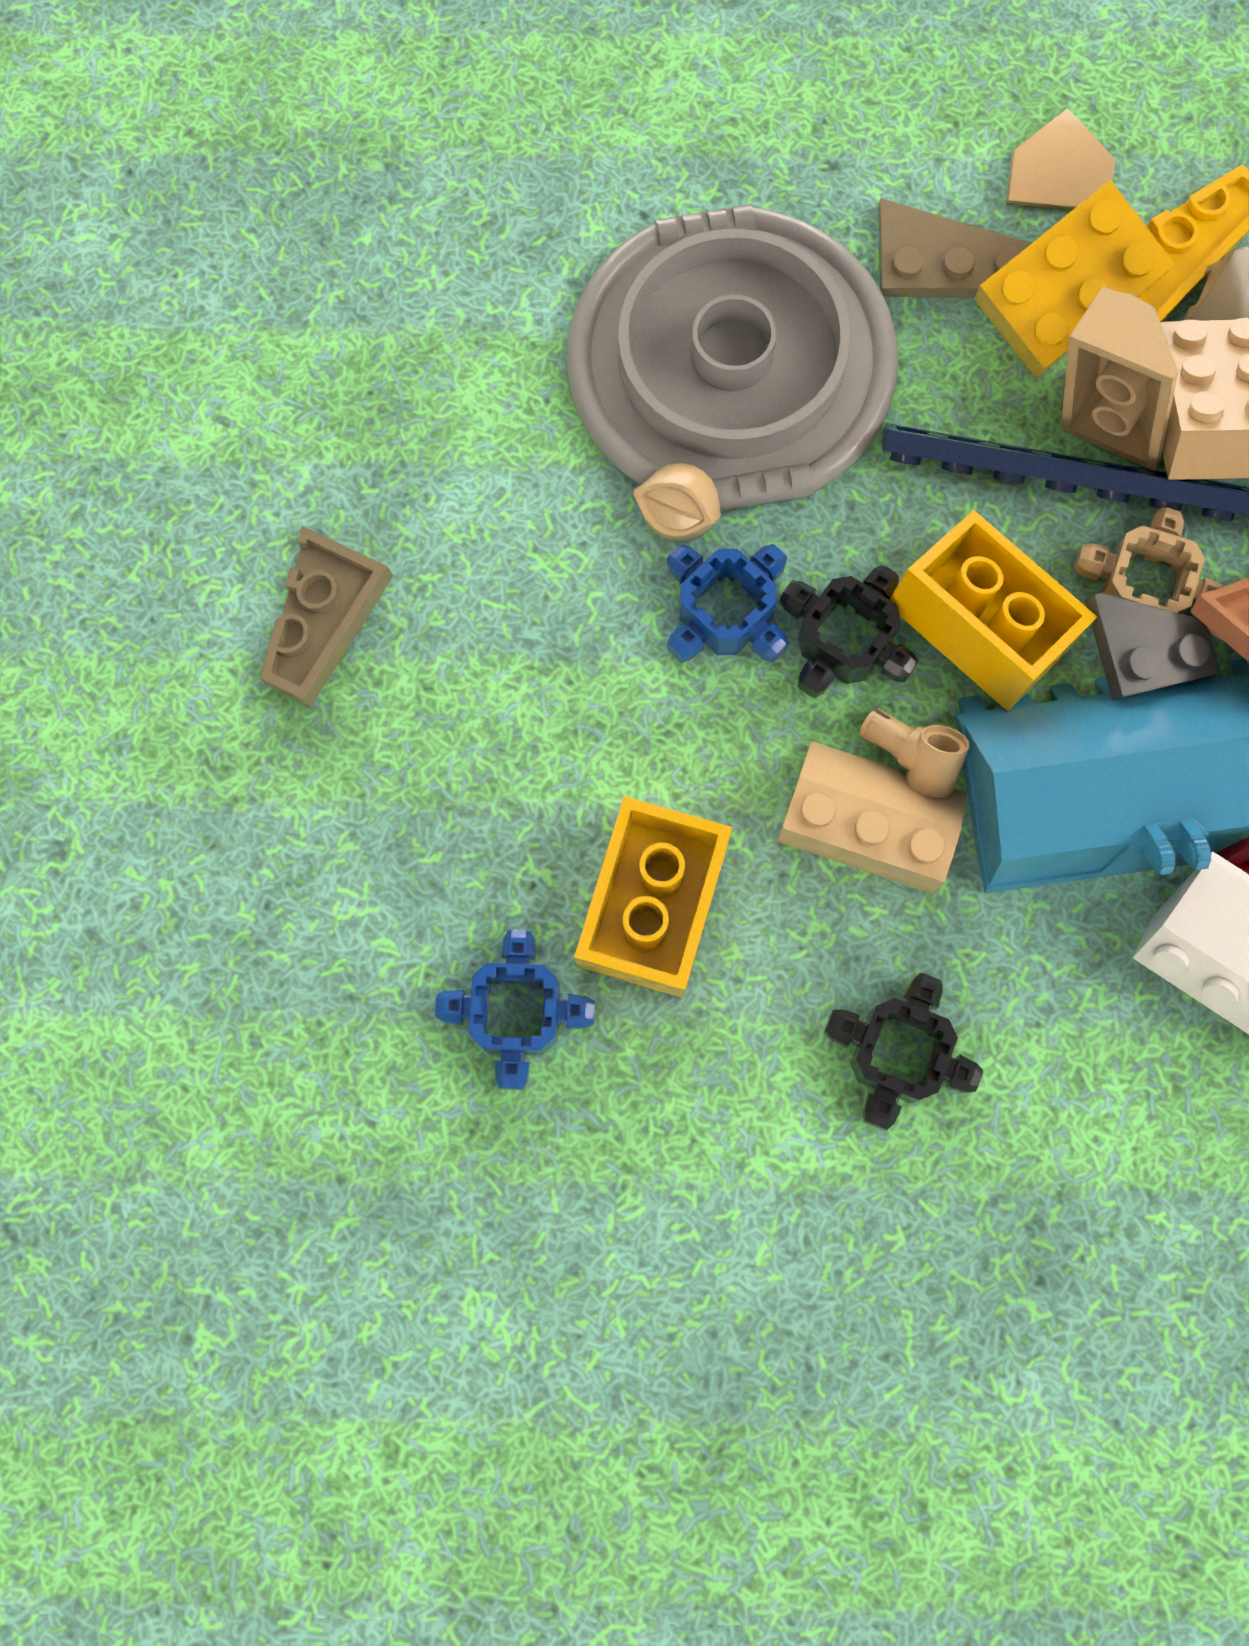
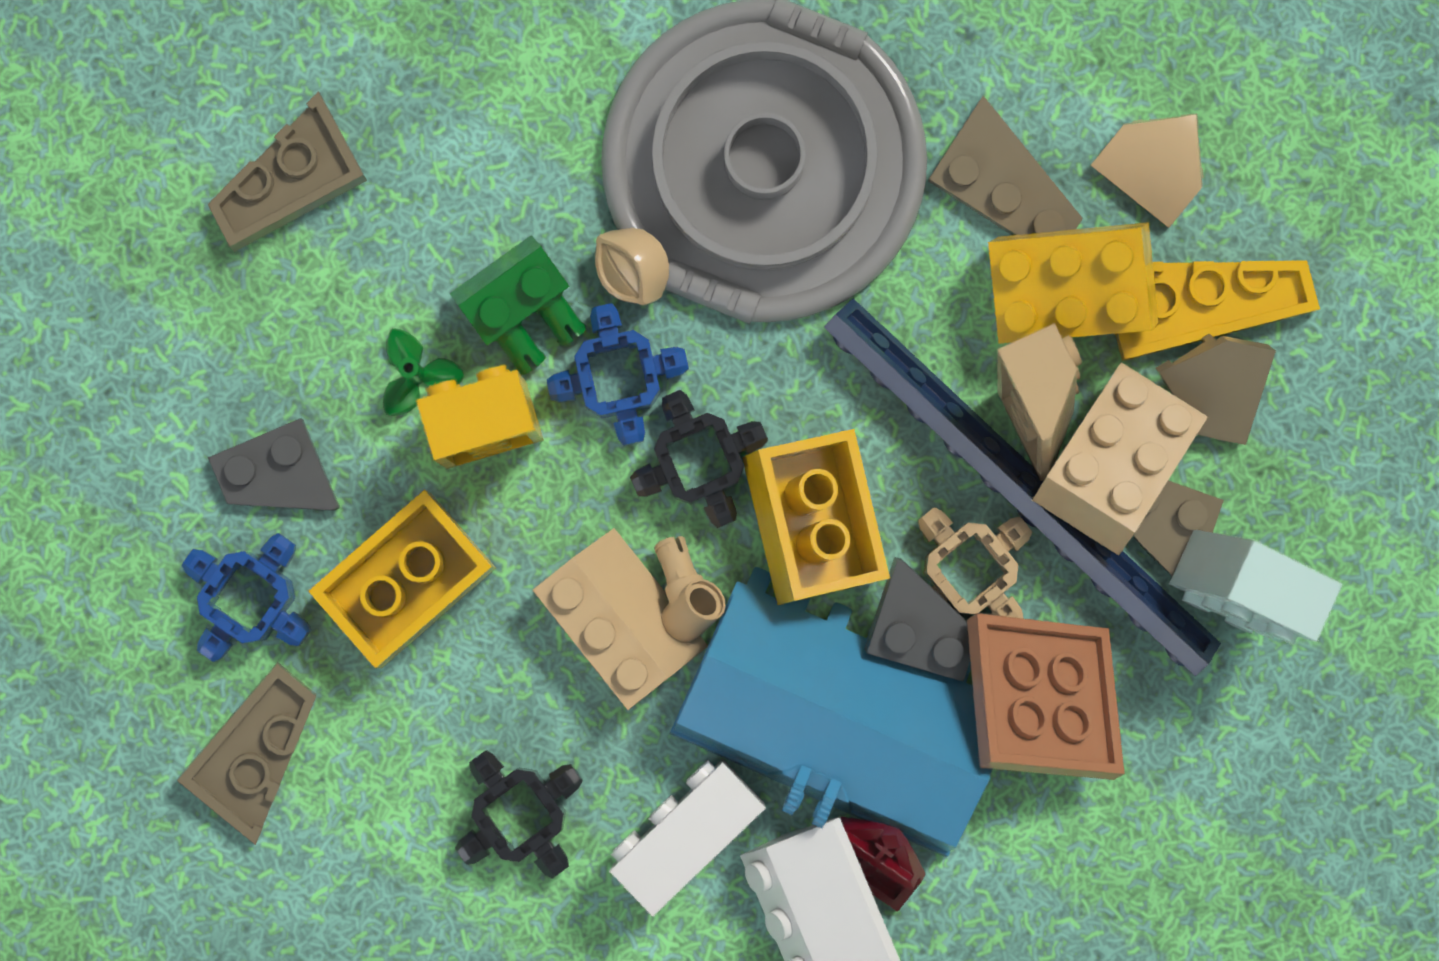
camera: 30 degrees right, 10 degrees up
(469, 879) = (275, 471): none -> dark grey wing
(535, 704) = (405, 354): none -> green plant
(584, 584) = (512, 290): none -> green brick
(610, 1155) = (250, 753): none -> dark tan wing
(635, 694) = (479, 417): none -> yellow brick
(1078, 965) = (685, 835): none -> white brick

